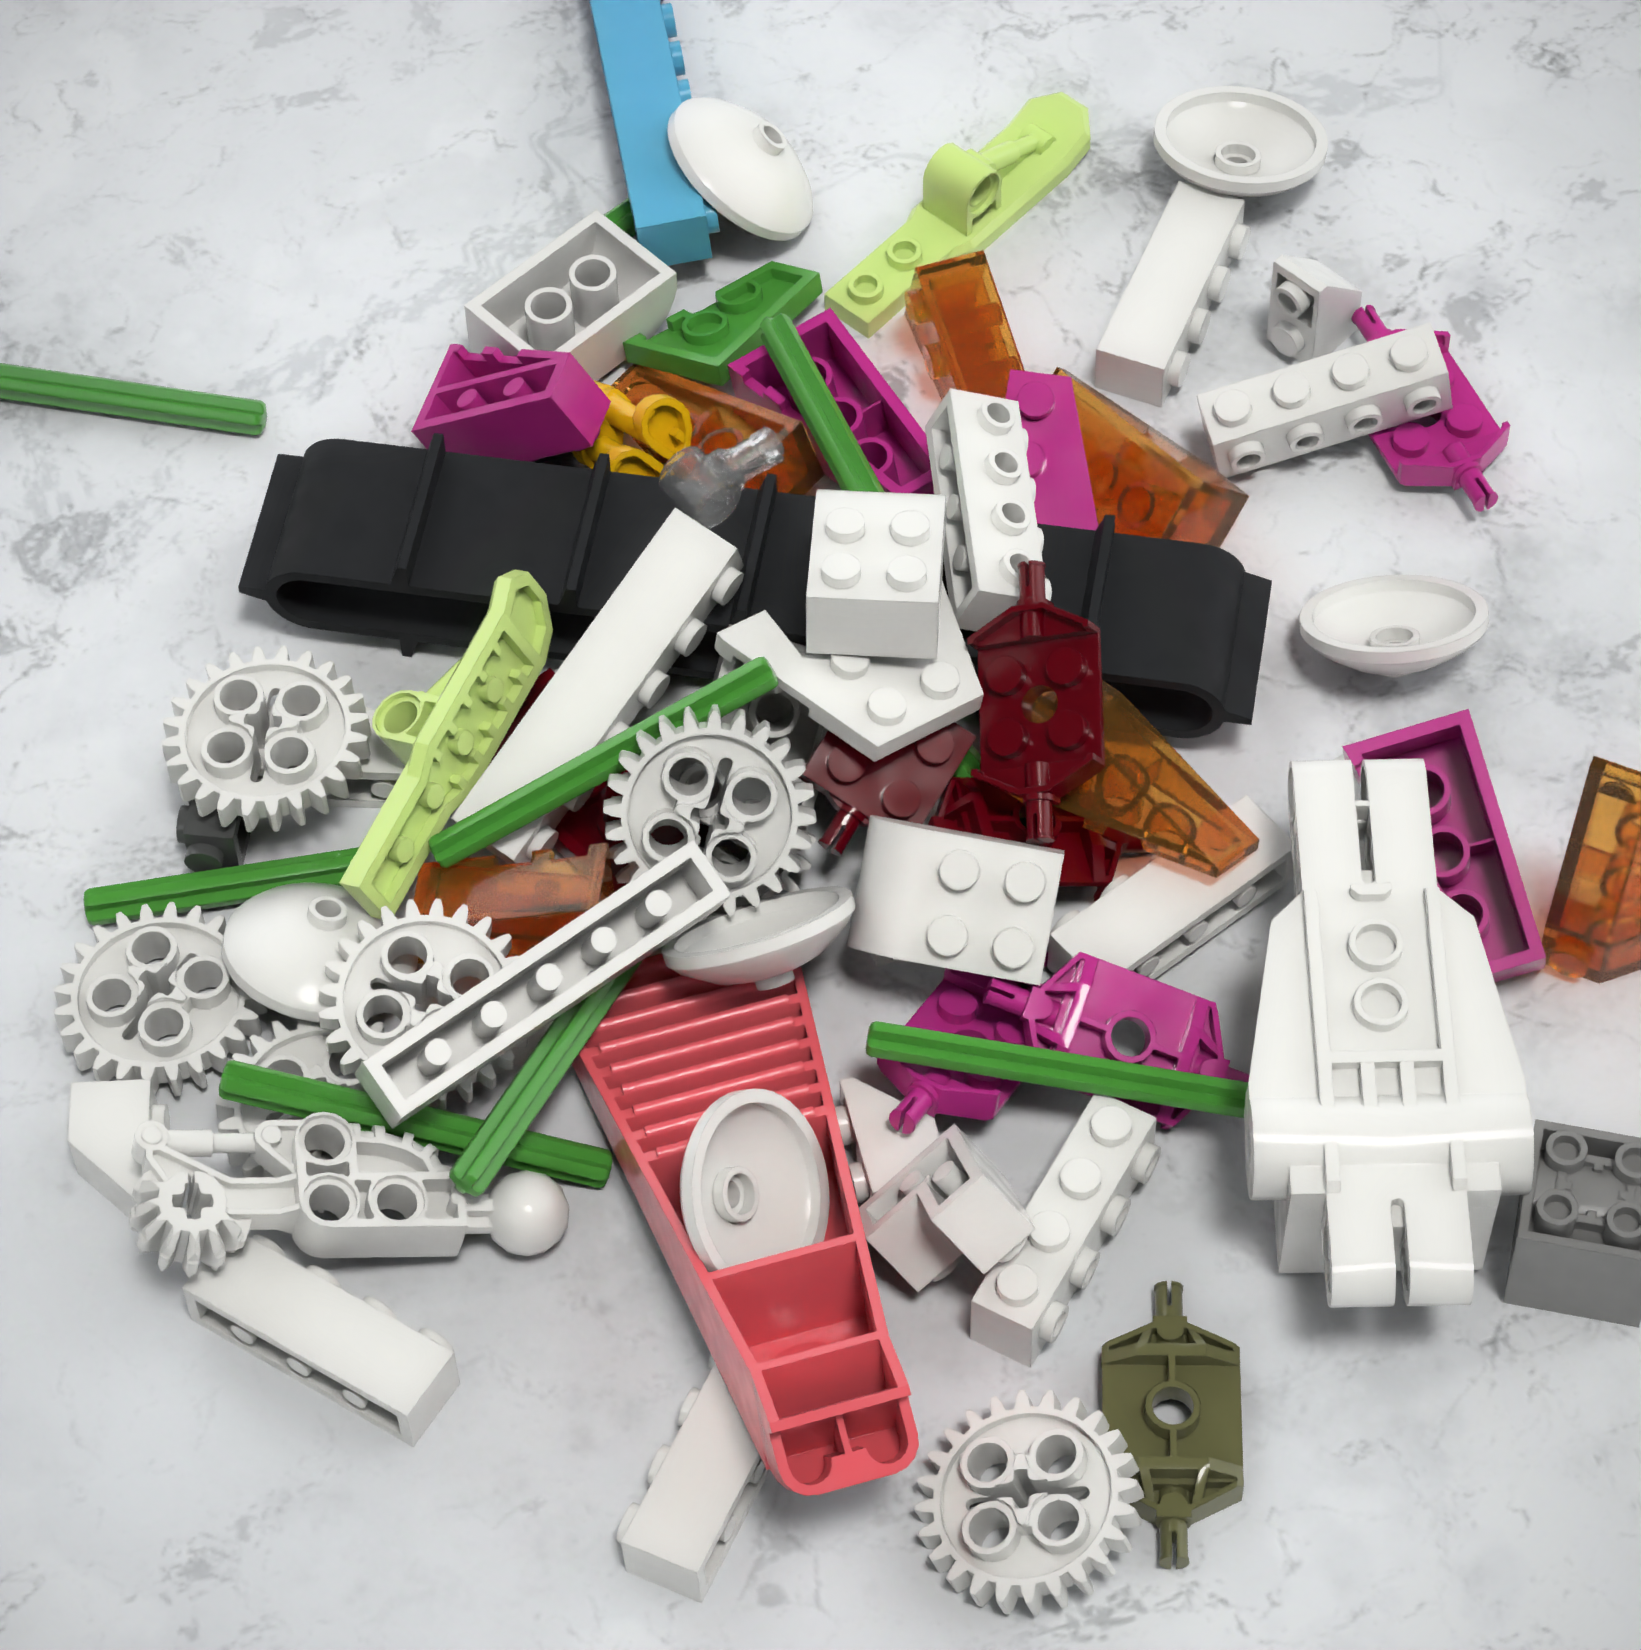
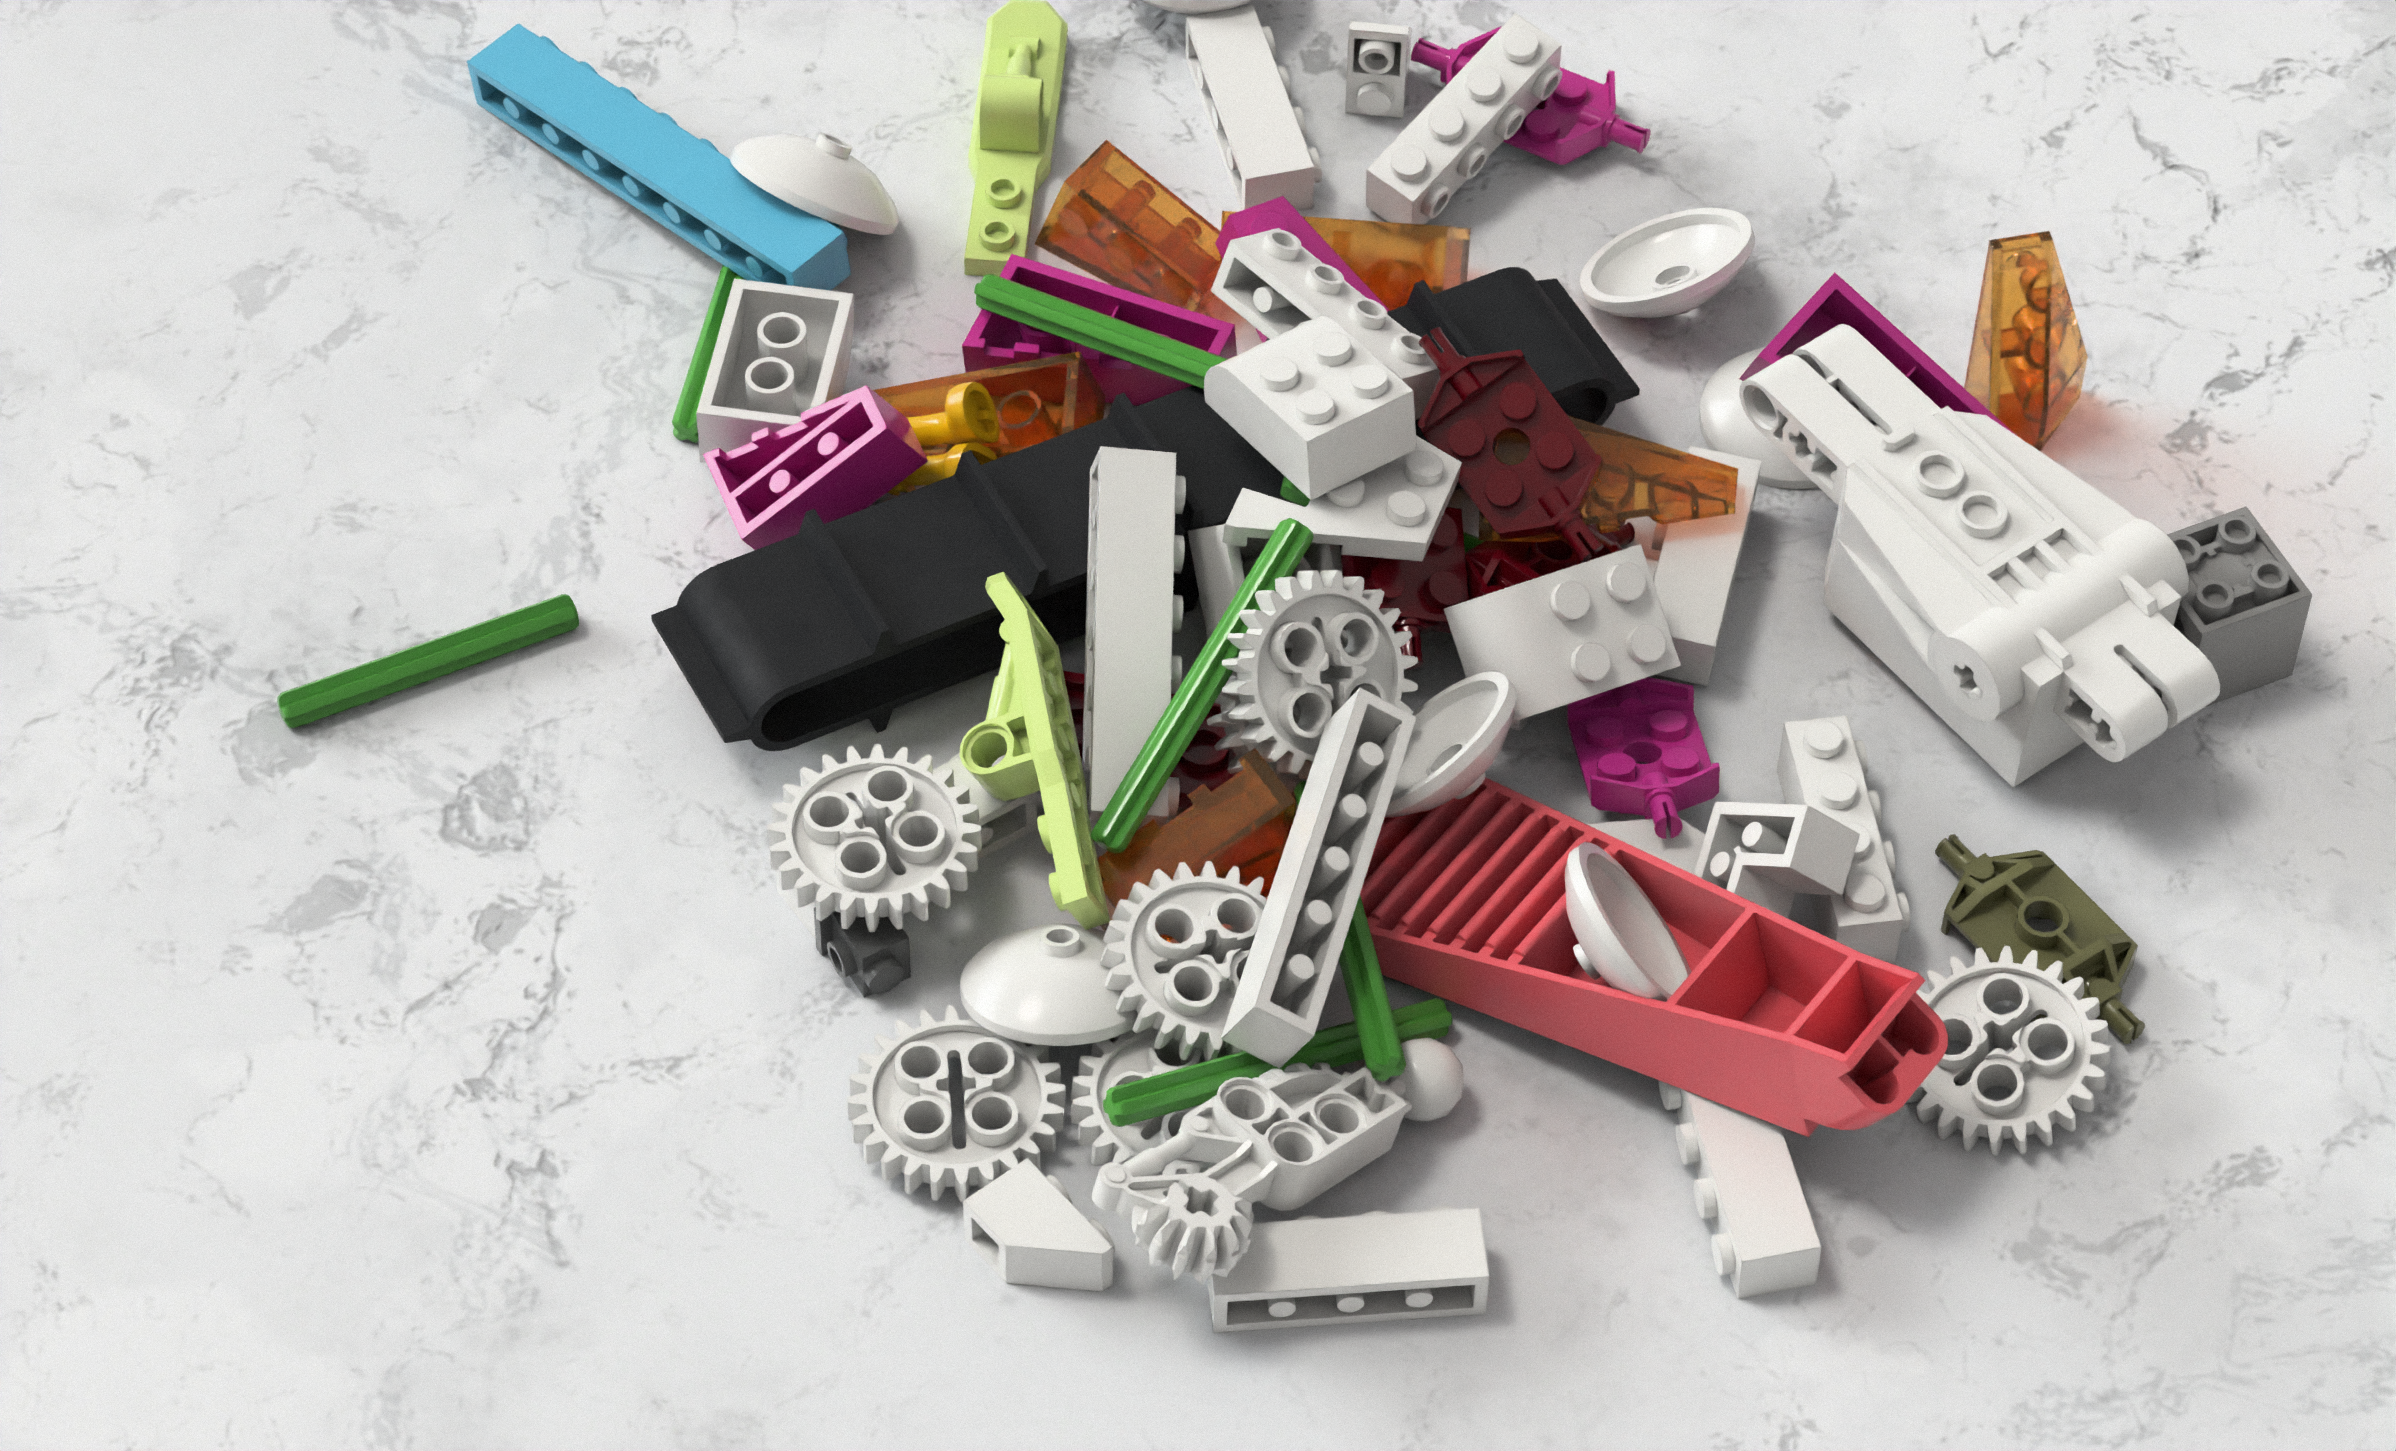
camera: 40 degrees left, 5 degrees down
(212, 887) = (926, 980): bright green axle -> none
(708, 340) = (916, 322): bright green wing -> none
(712, 483) = (1077, 423): clear pin -> none
(1056, 1069) = (1749, 720): bright green axle -> none
(1089, 996) = (1728, 697): dark pink plate -> none

